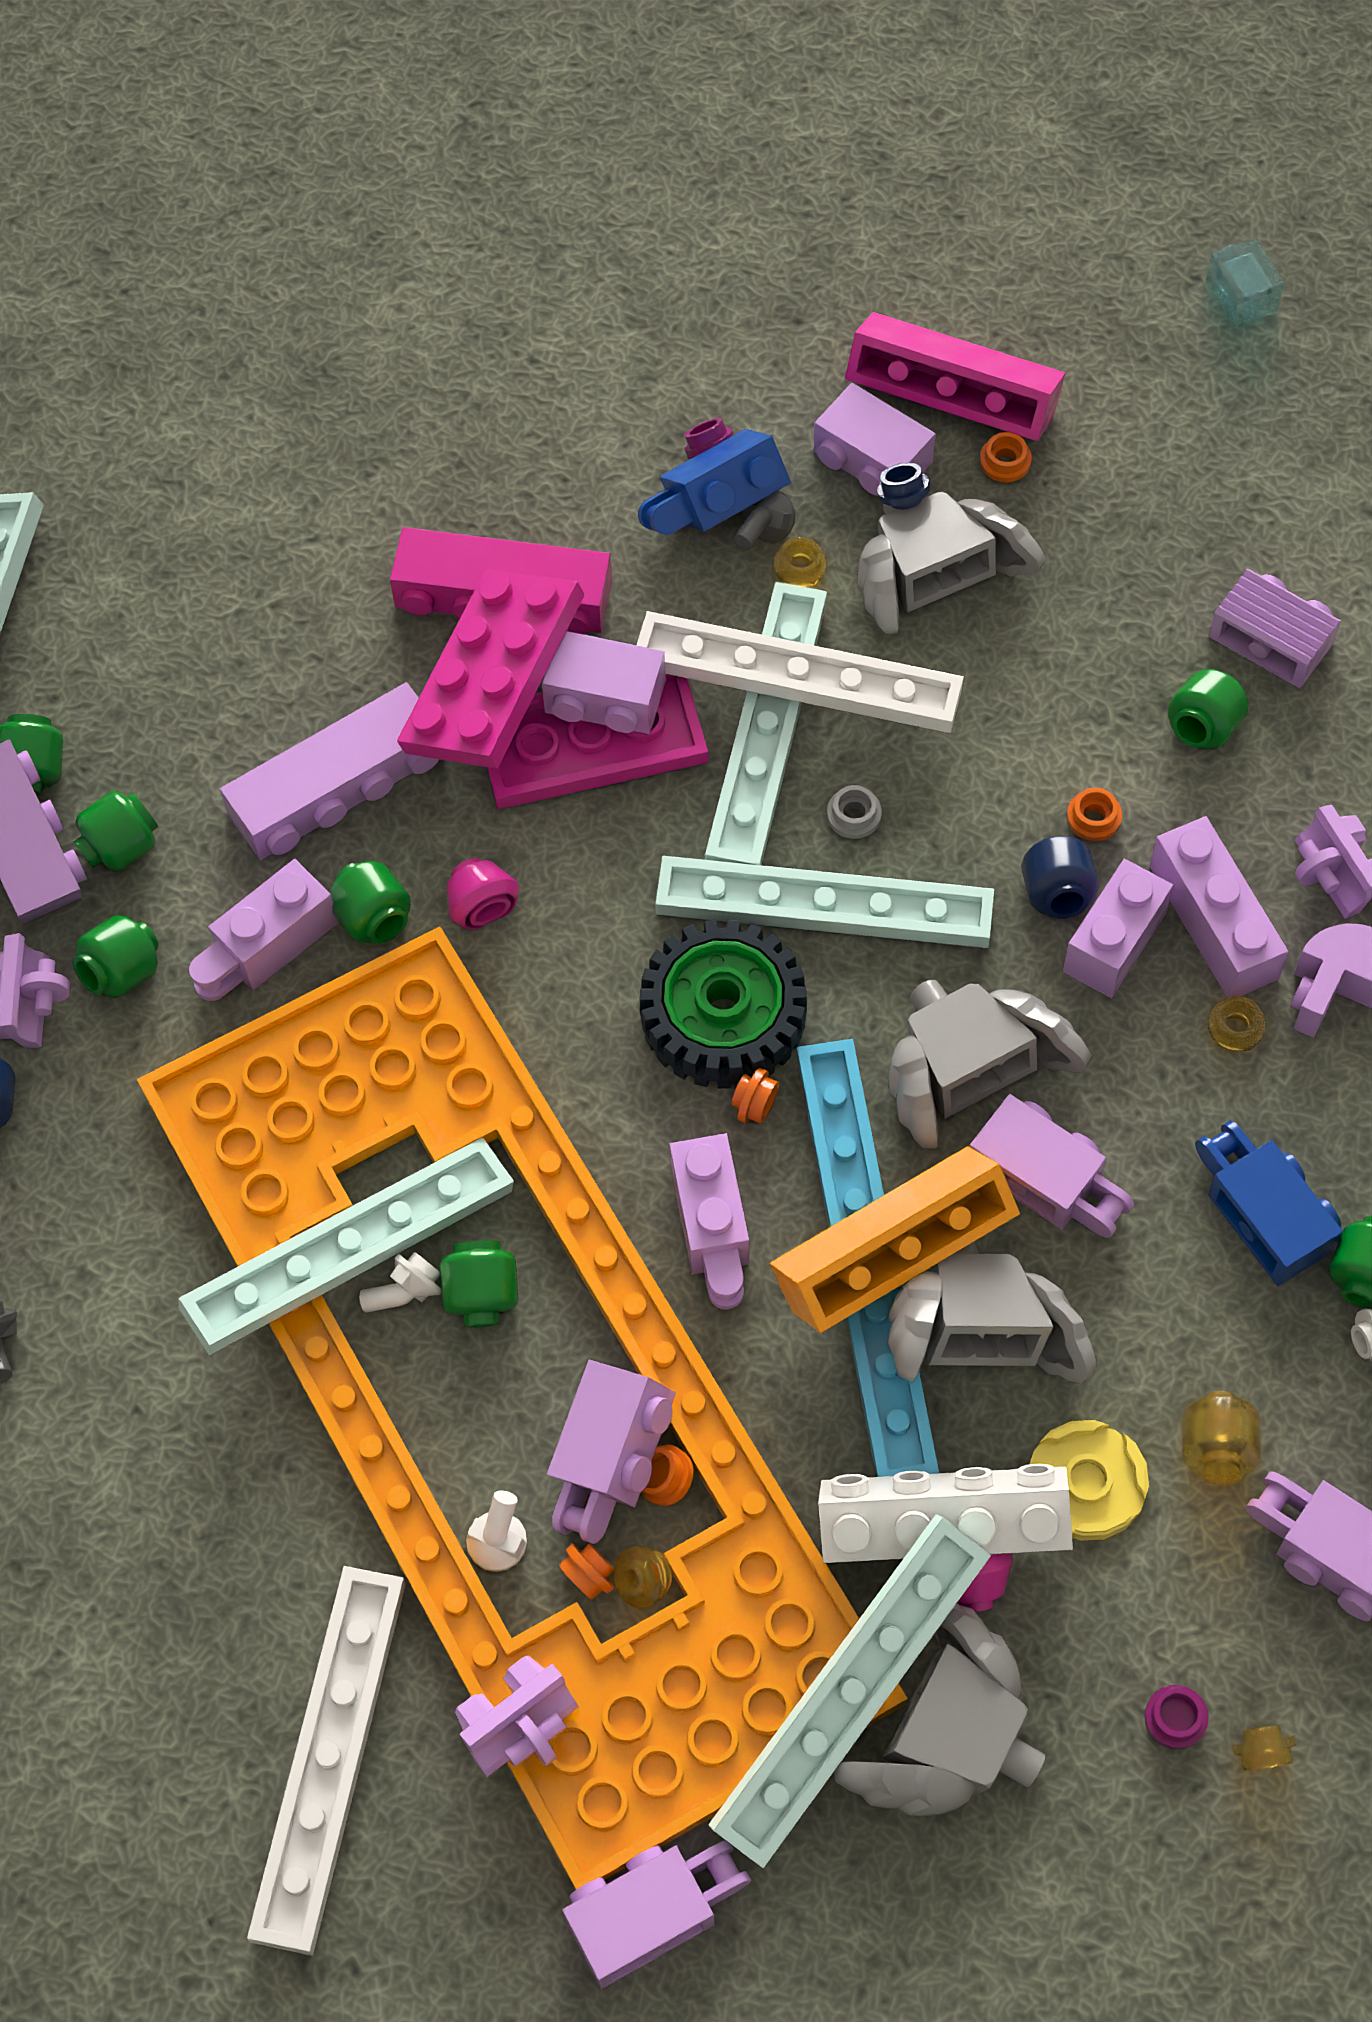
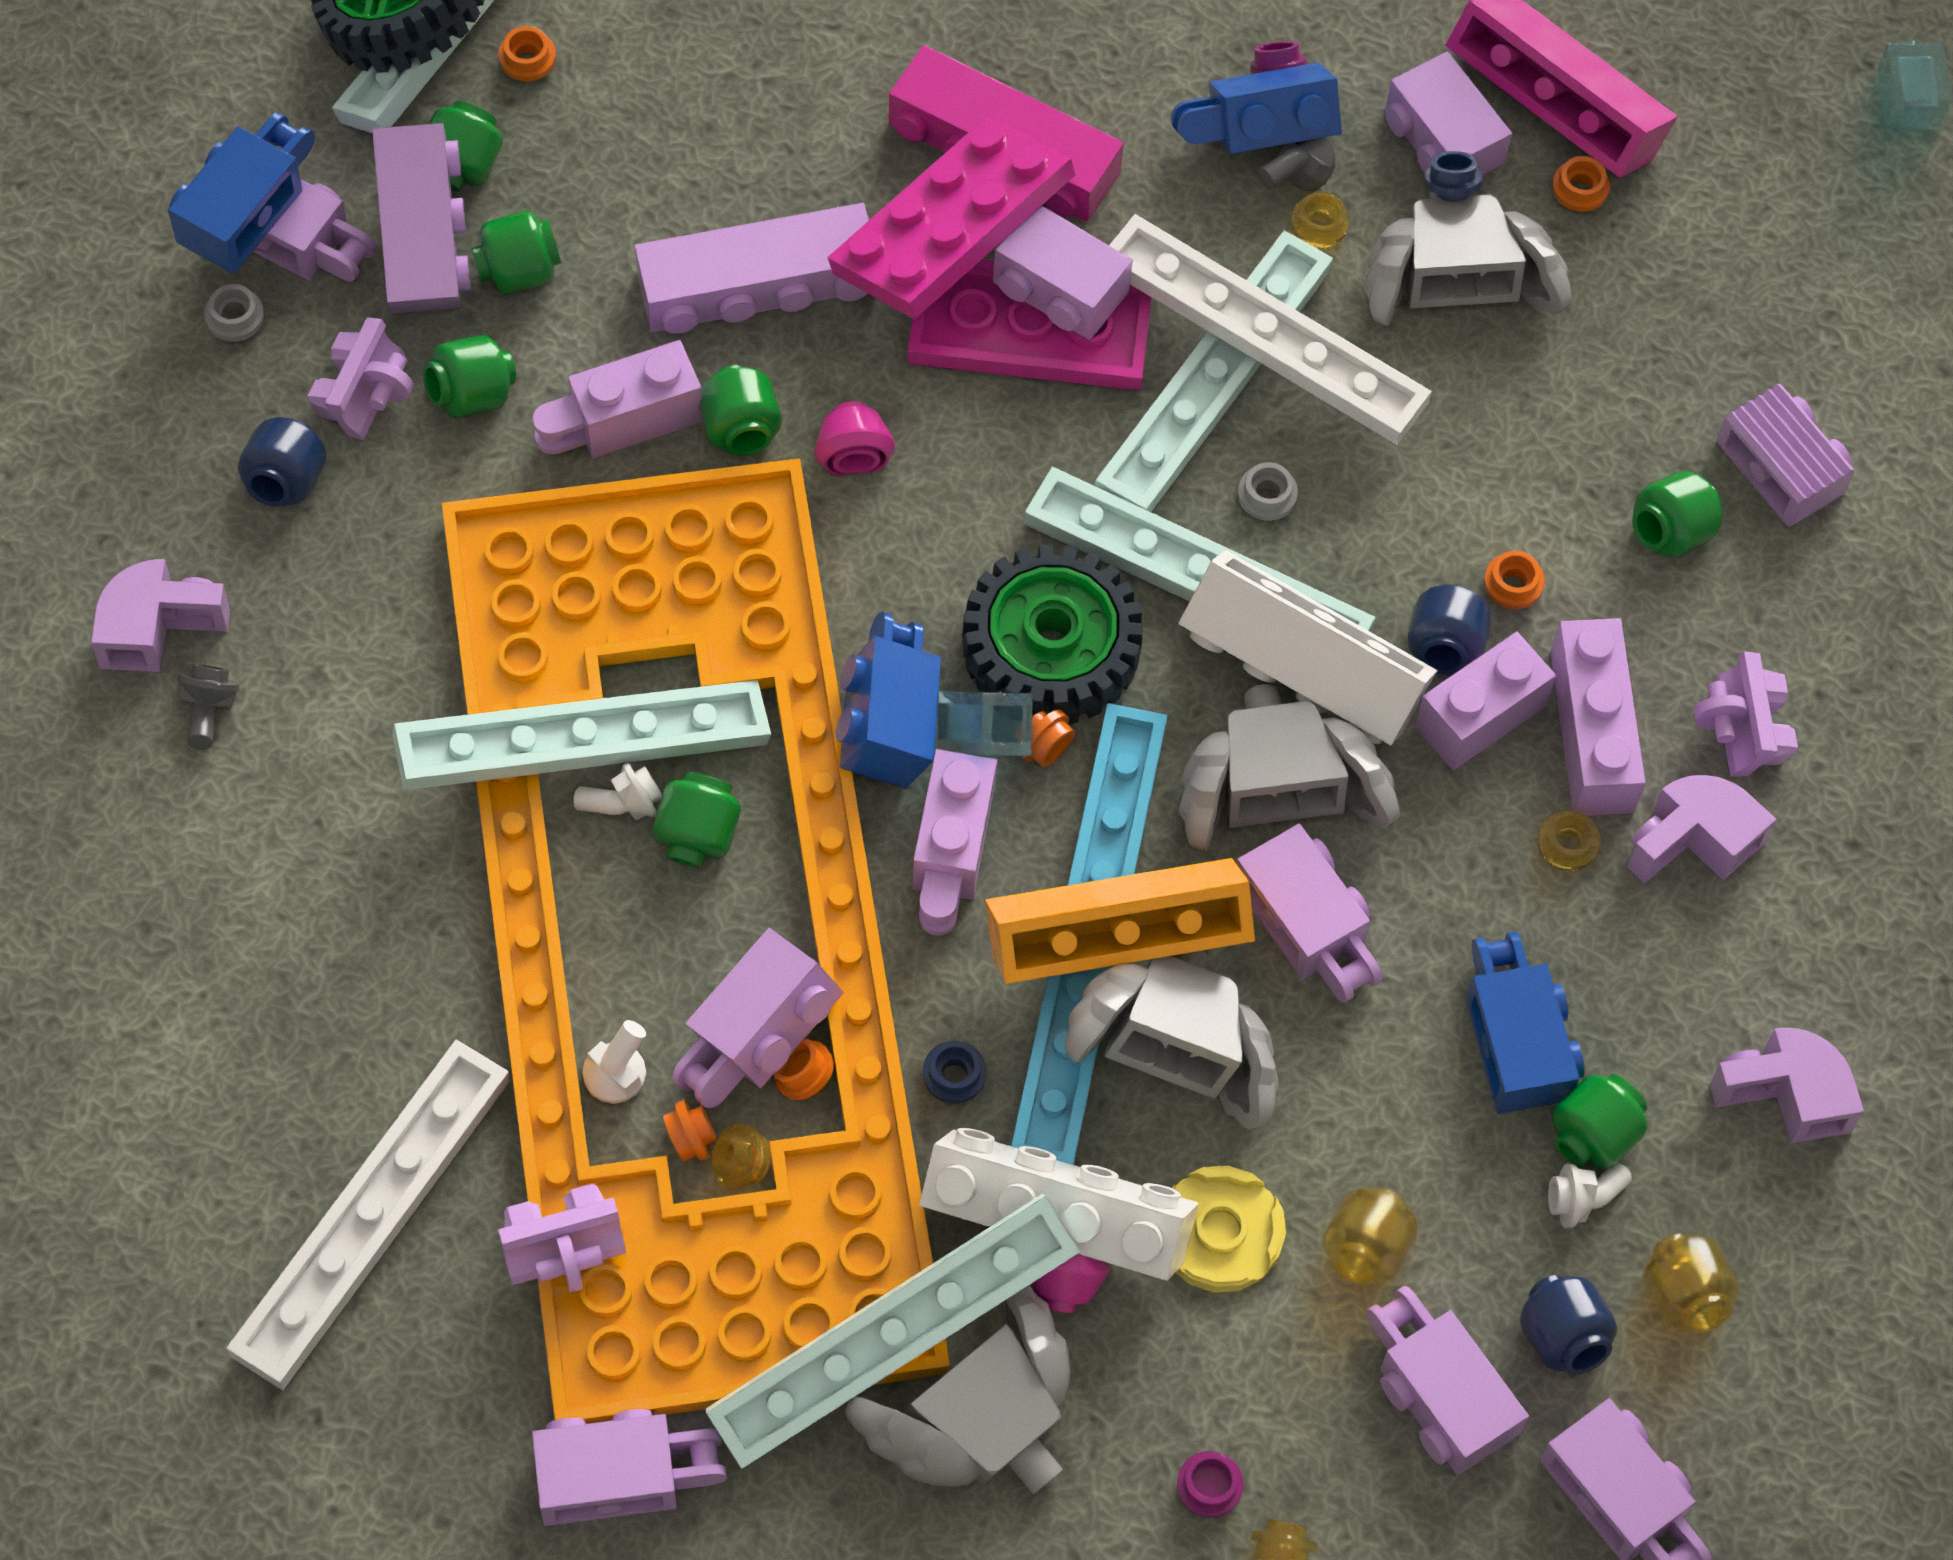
camera: 15 degrees right, 0 degrees up
(49, 641) = (527, 40): none -> orange plate
(610, 1117) = (889, 704): none -> blue brick
(700, 1104) = (985, 723): none -> clear light blue brick
(802, 1409) = (956, 1054): none -> dark blue plate
(951, 937) = (1306, 648): none -> white brick

